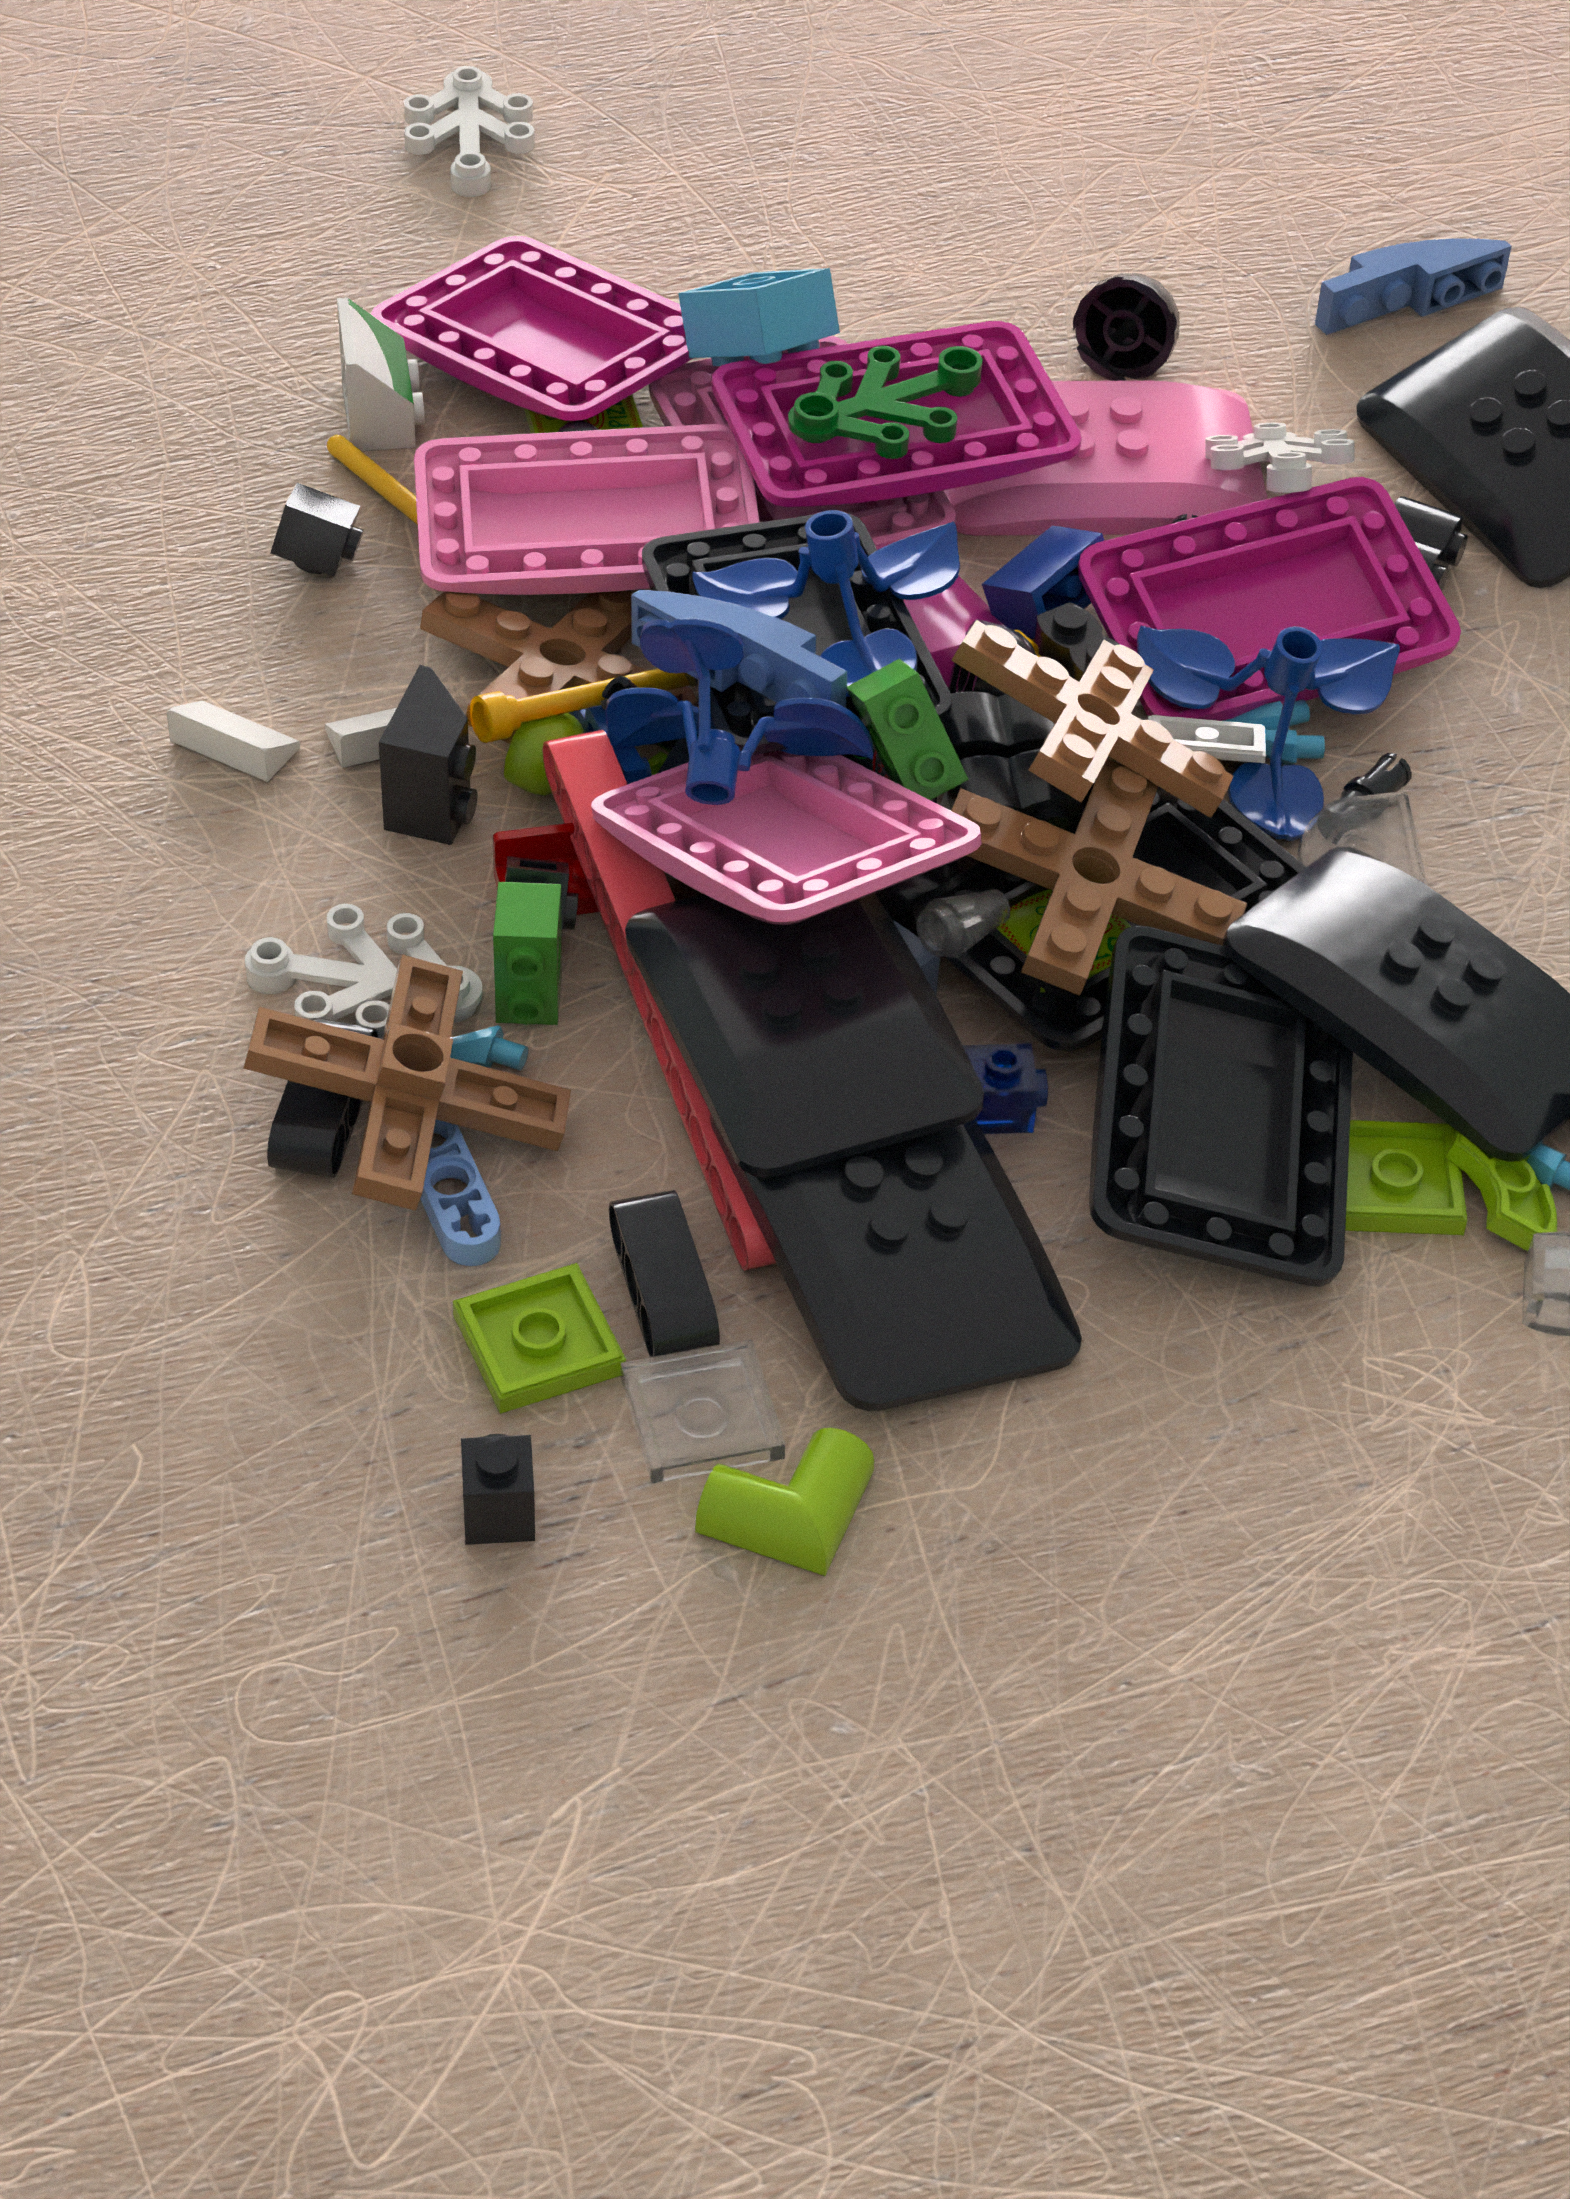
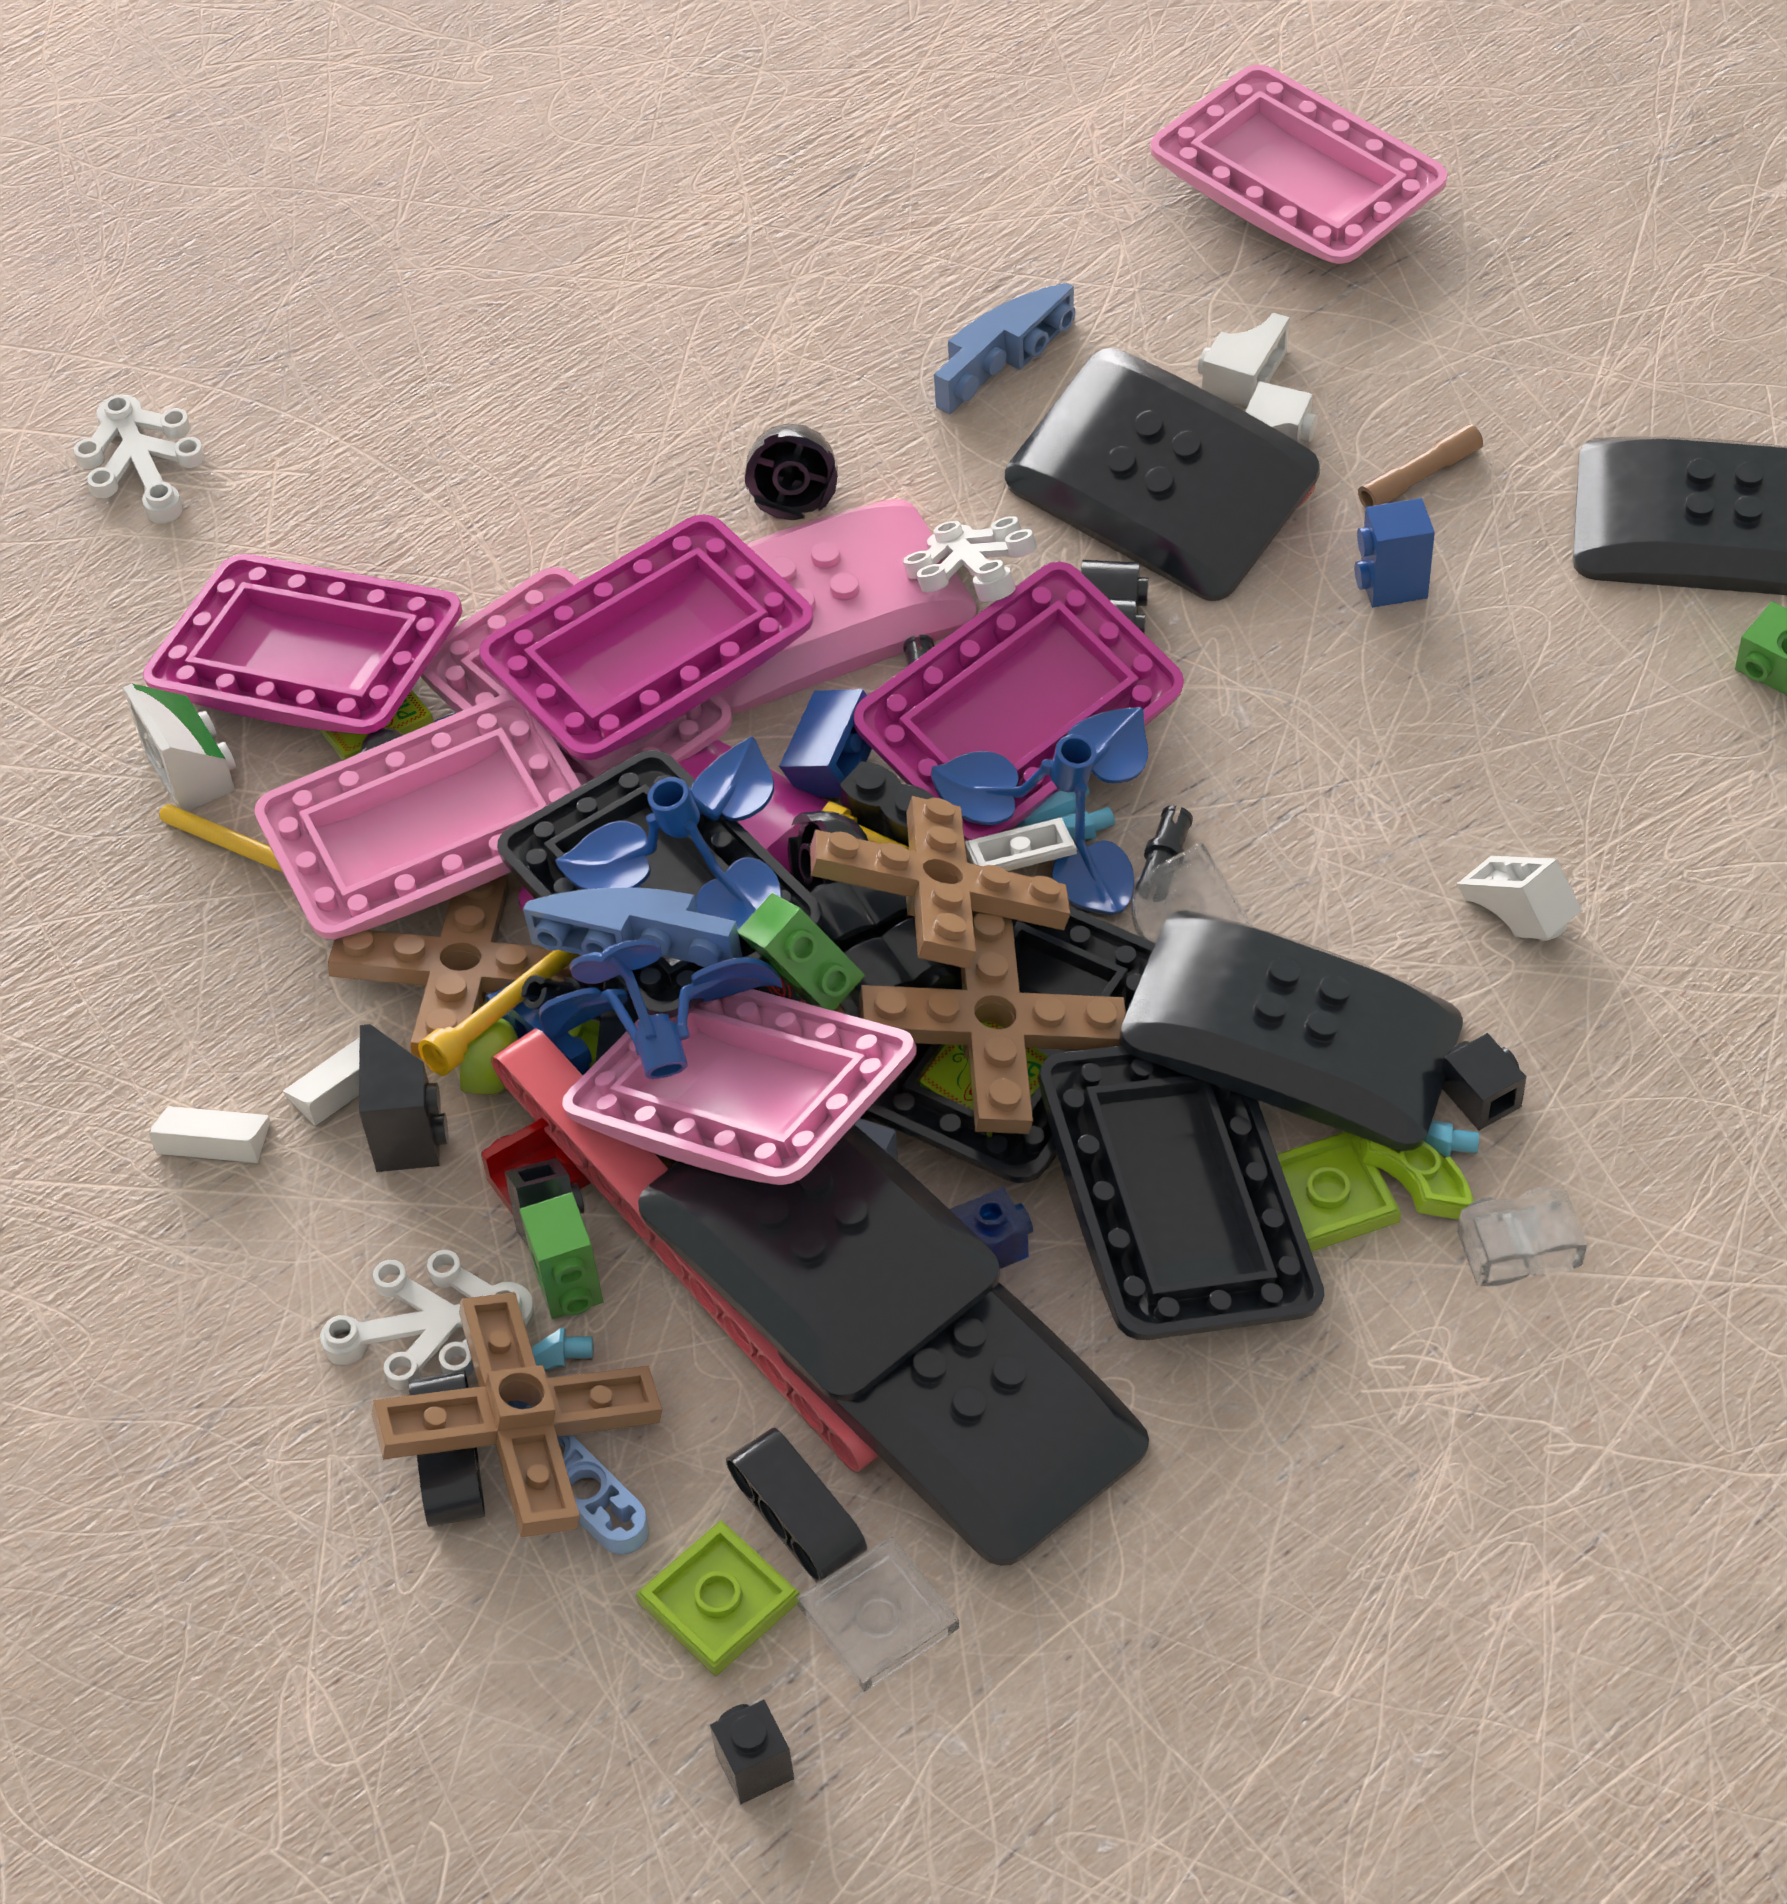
camera: 15 degrees left, 5 degrees up
(317, 531) = (197, 910): black brick -> none
(759, 315) = (494, 580): medium azure brick -> none
(795, 1521) = (996, 1681): lime brick -> none
(820, 417) = (593, 667): green plant -> none
(960, 921) = (905, 1099): clear cone -> none

